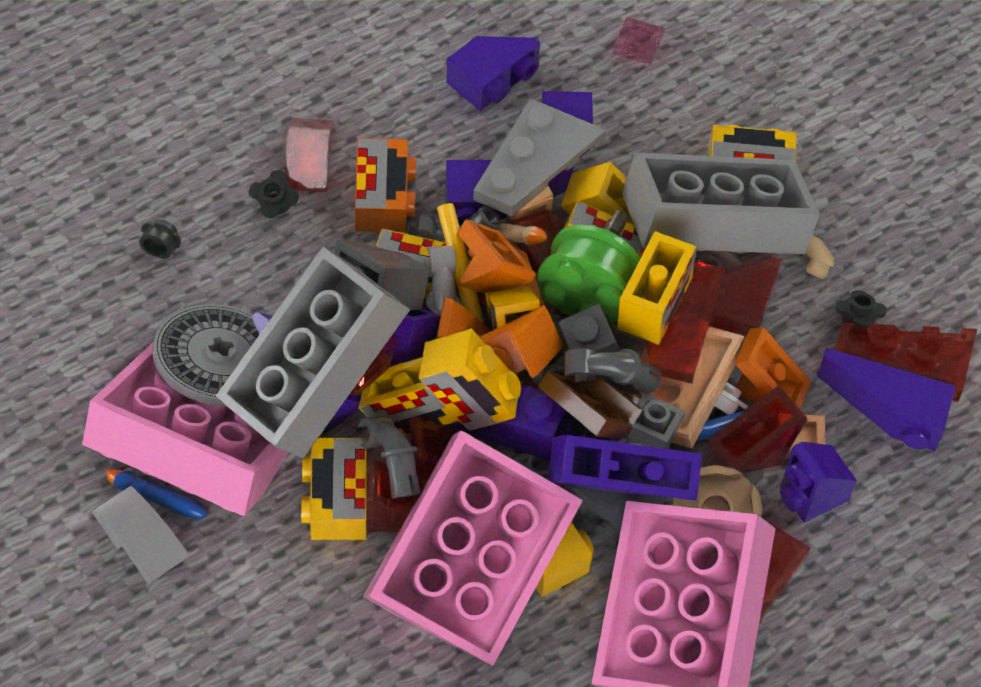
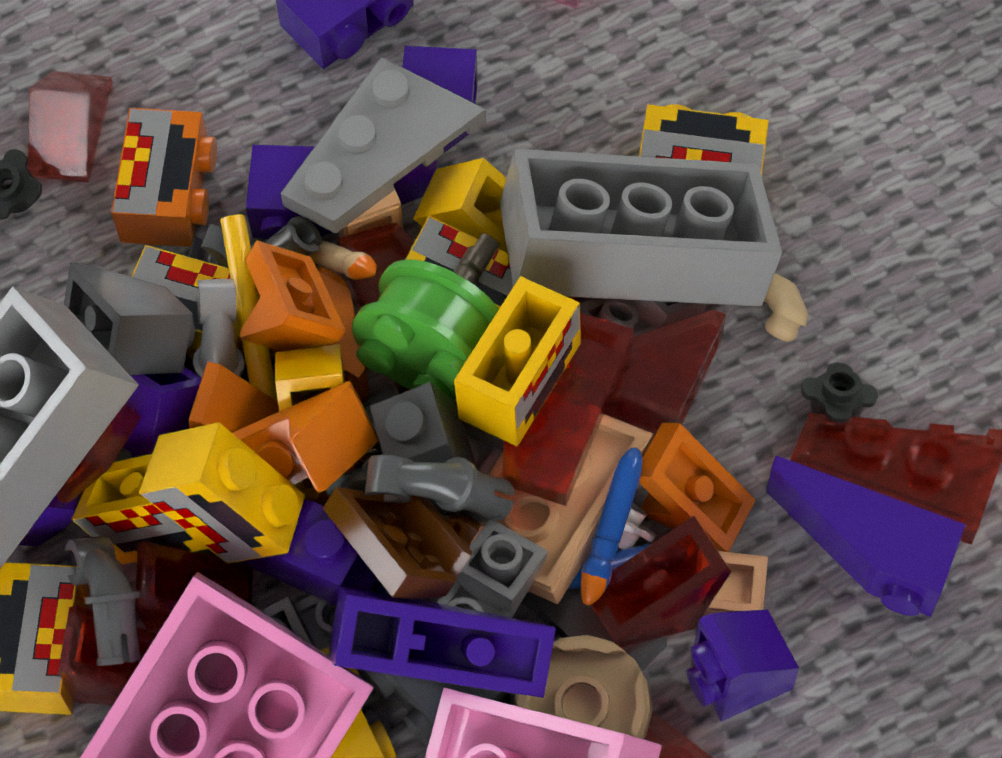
camera: 10 degrees right, 5 degrees up
(724, 393) = (598, 568): none -> blue piece

